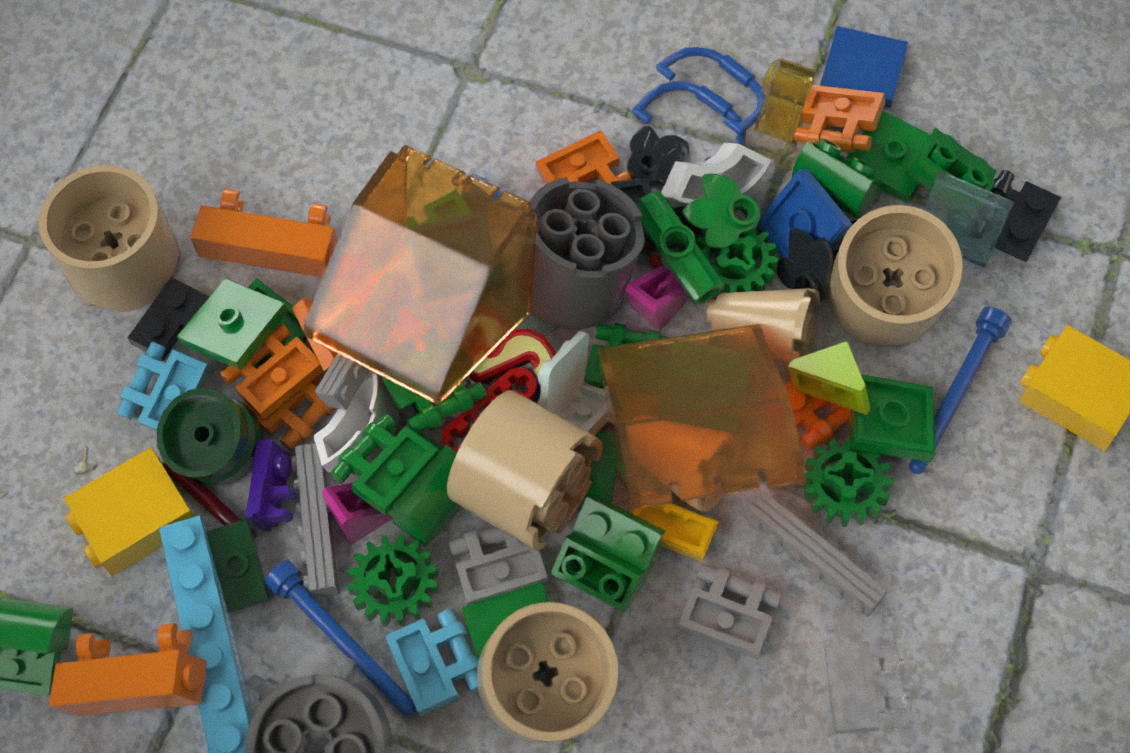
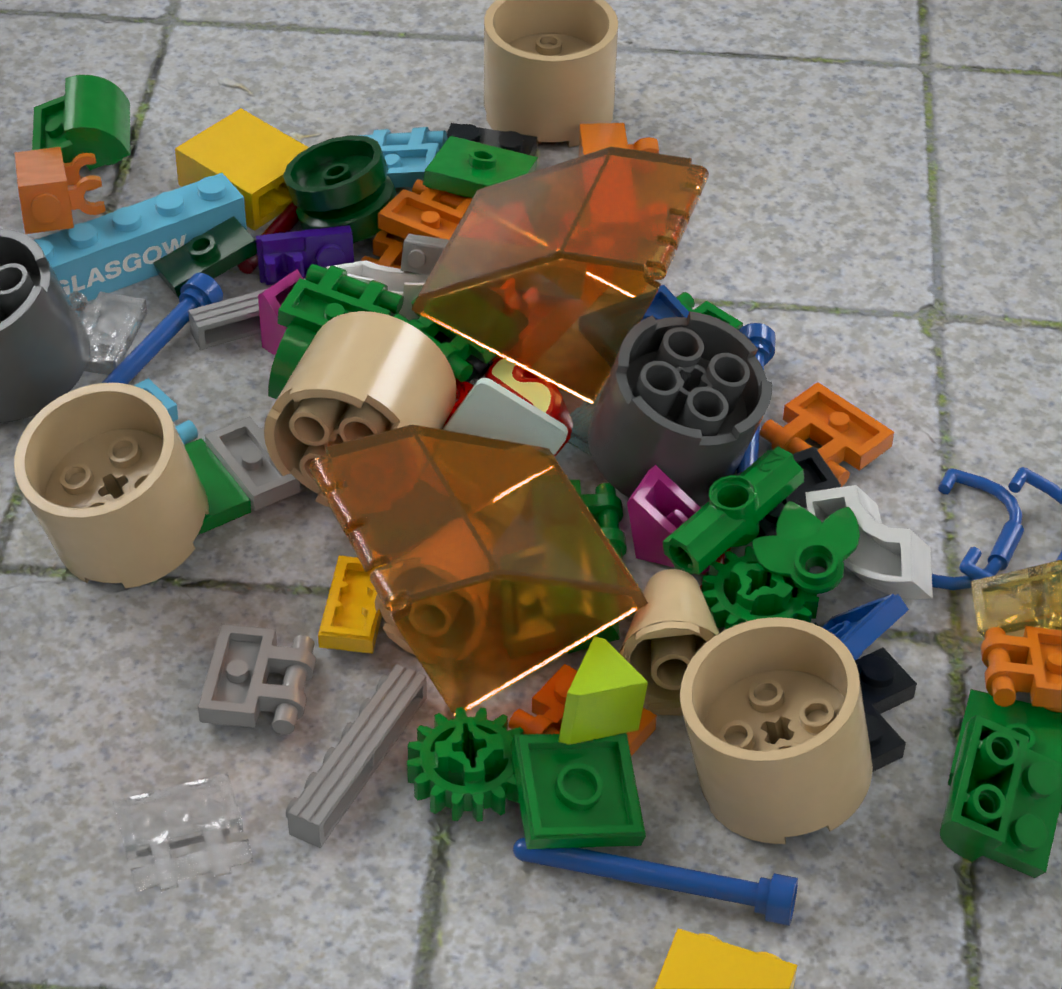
camera: 70 degrees right, 20 degrees down
(409, 578) = (218, 374): green gear -> none
(608, 552) = (287, 546): green brick -> none
(656, 154) = (896, 493): black plate -> none
(846, 181) = (928, 668): green brick -> none
(971, 215) = (923, 816): clear light blue plate -> none
(1027, 218) = (979, 924): black plate -> none

